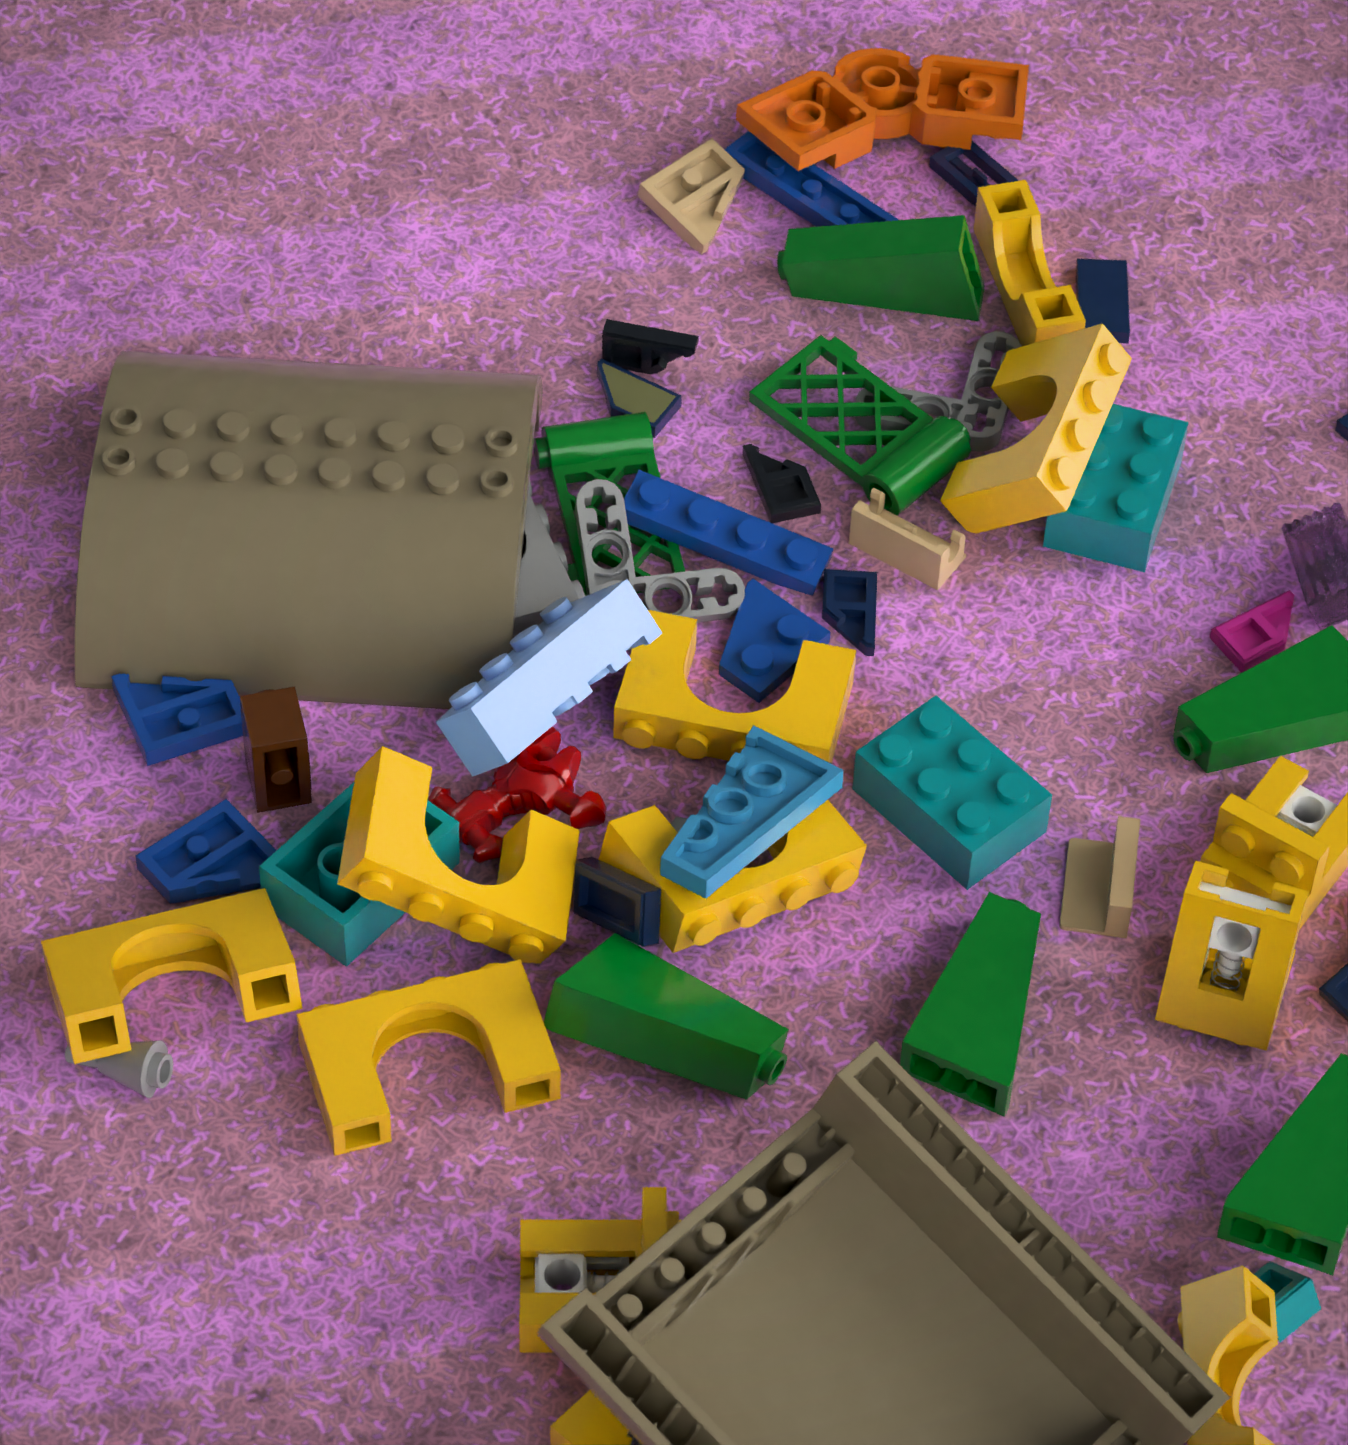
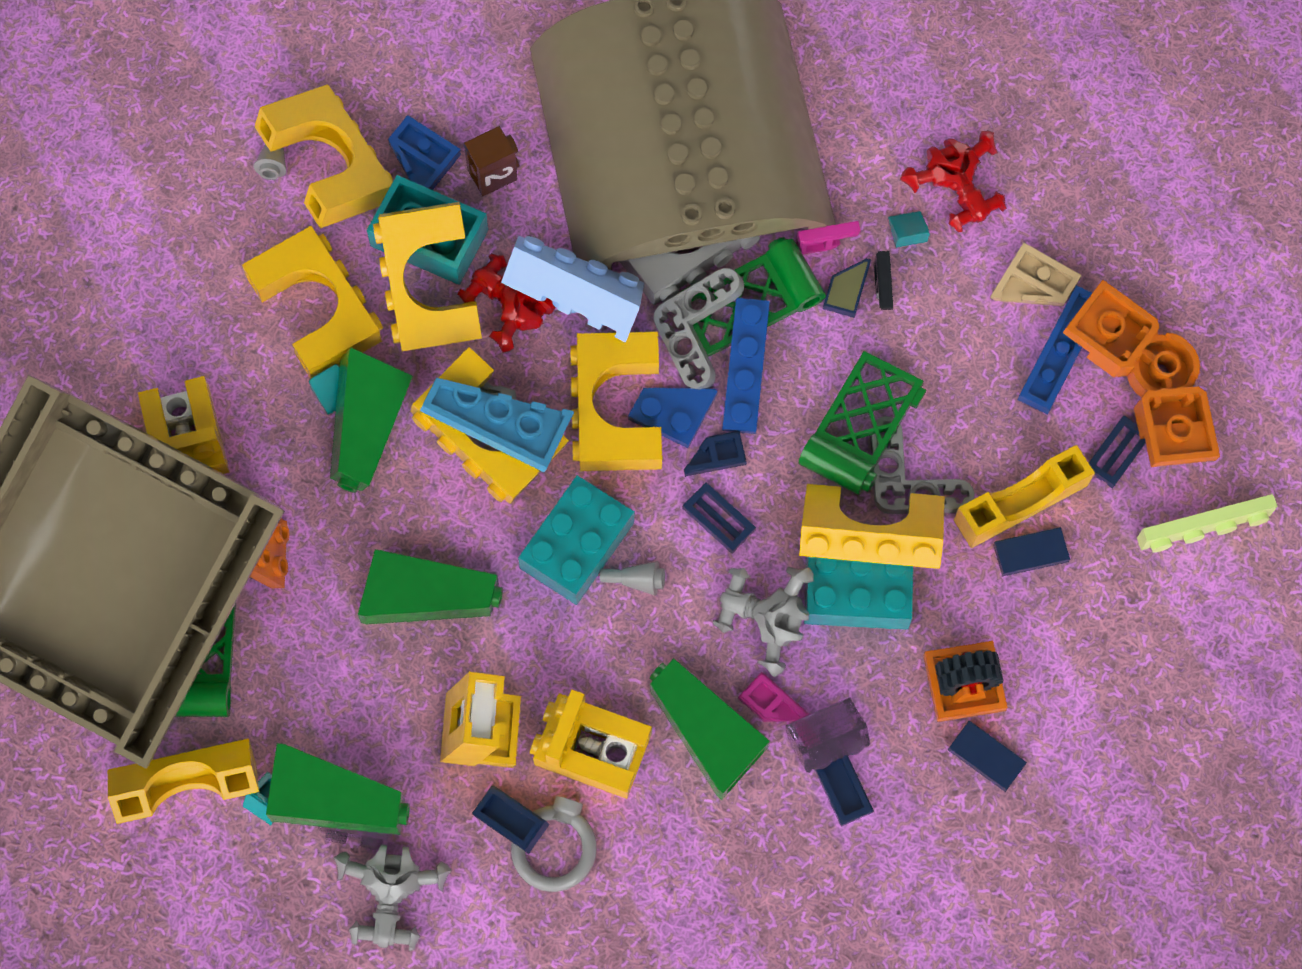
camera: 75 degrees right, 20 degrees up
(178, 714) = (518, 107): blue wing -> none
(492, 231) = (954, 169): none -> red piece
(551, 386) = (826, 237): none -> dark pink tile
(564, 308) = (908, 229): none -> teal slope
(588, 1069) = (326, 387): none -> teal slope
(617, 901) = (433, 370): dark blue tile -> none
(782, 487) = (803, 391): black tile -> none
(887, 265) = (1001, 409): green slope -> none
(903, 543) = (776, 473): tan hinge -> none
(931, 649) = (697, 499): none -> dark blue tile
(1030, 729) = (641, 577): none -> light grey cone
(1101, 882) = (541, 643): tan panel -> none
(1114, 102) = (1220, 520): none -> yellowish green plate
(1141, 576) = (776, 616): none -> light grey piece
(1280, 402) = (965, 681): none -> plate

